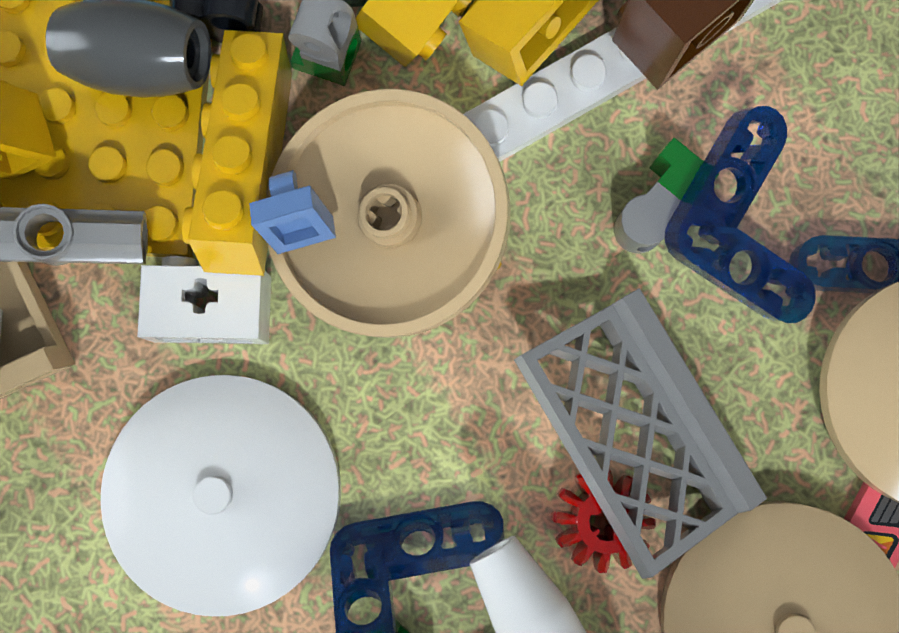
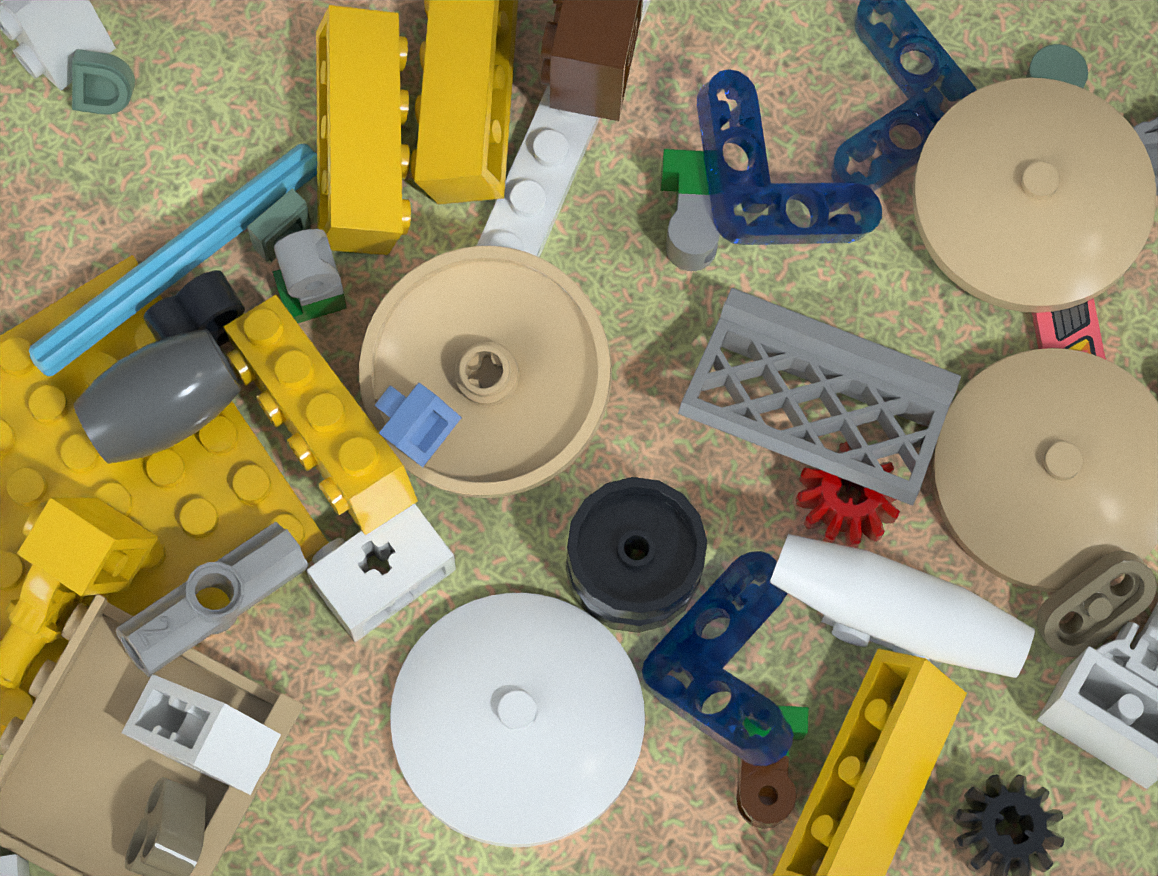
camera: 40 degrees left, 10 degrees down
(359, 437) = (645, 518): none -> black wheel

